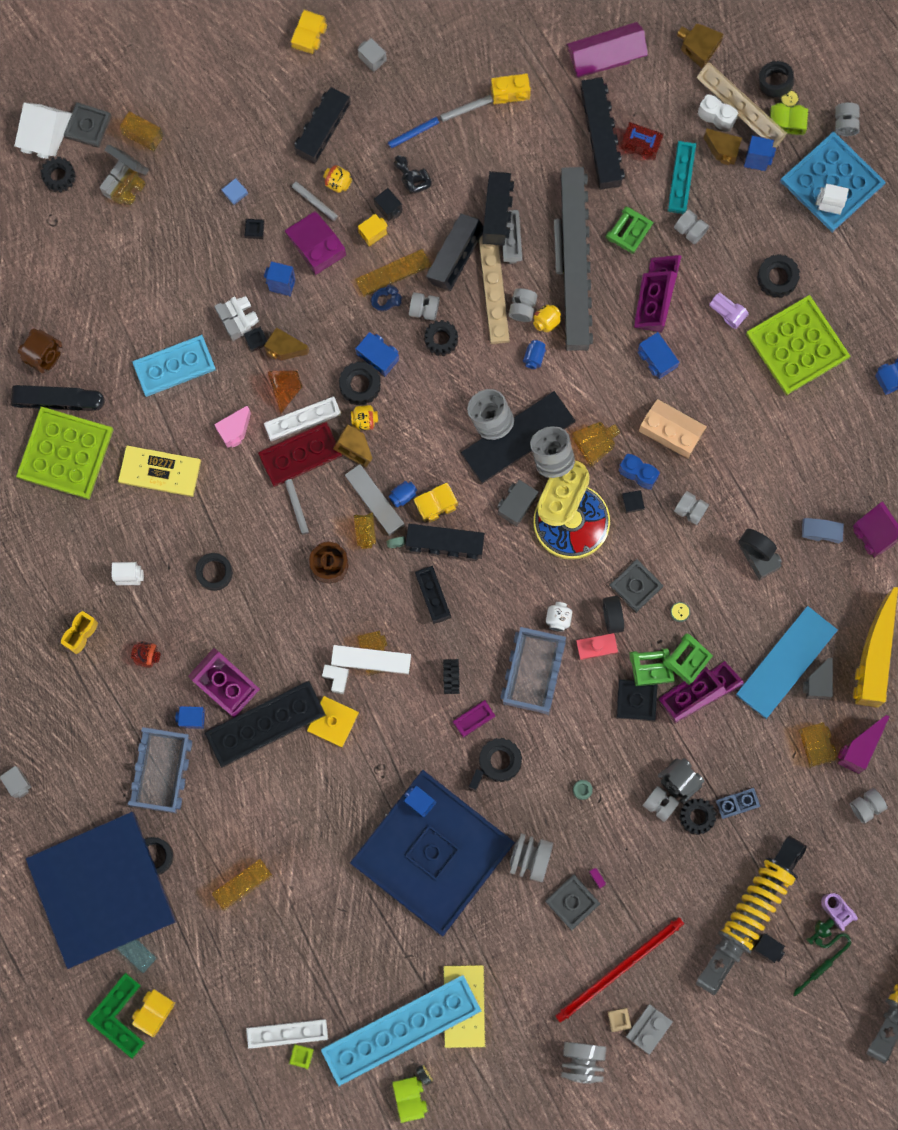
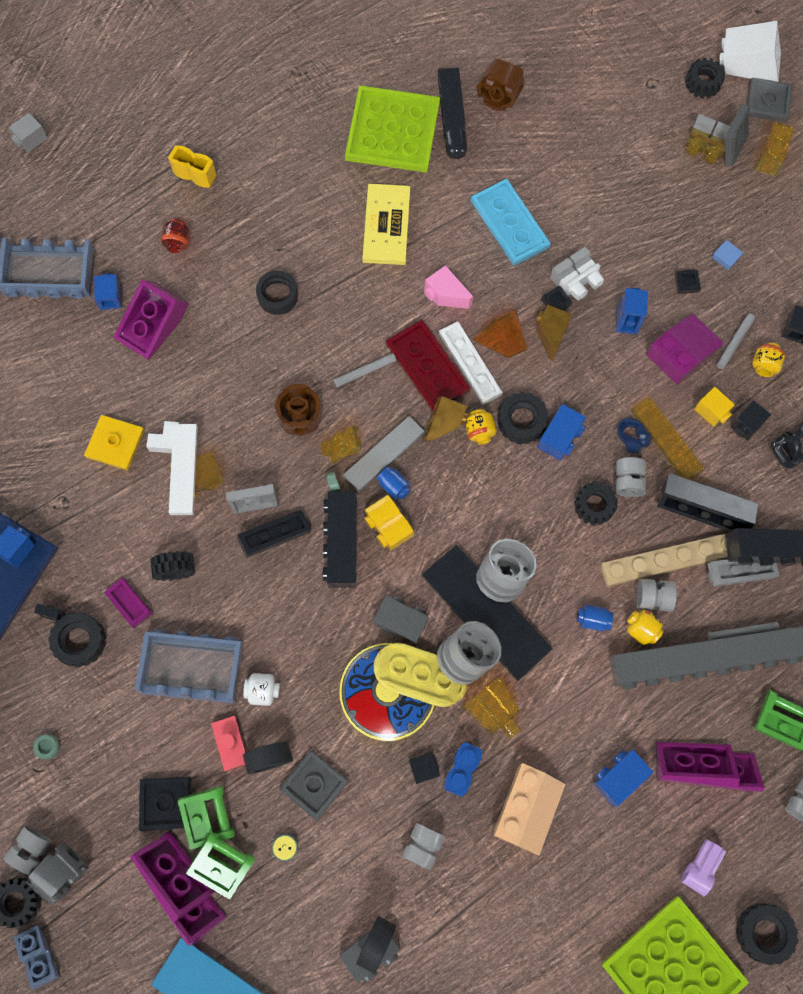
camera: 80 degrees right, 5 degrees down
(127, 573) = (261, 200): white brick -> none
(265, 724) = (106, 370): black tile -> none
(404, 614) = (252, 499): none -> light grey tile

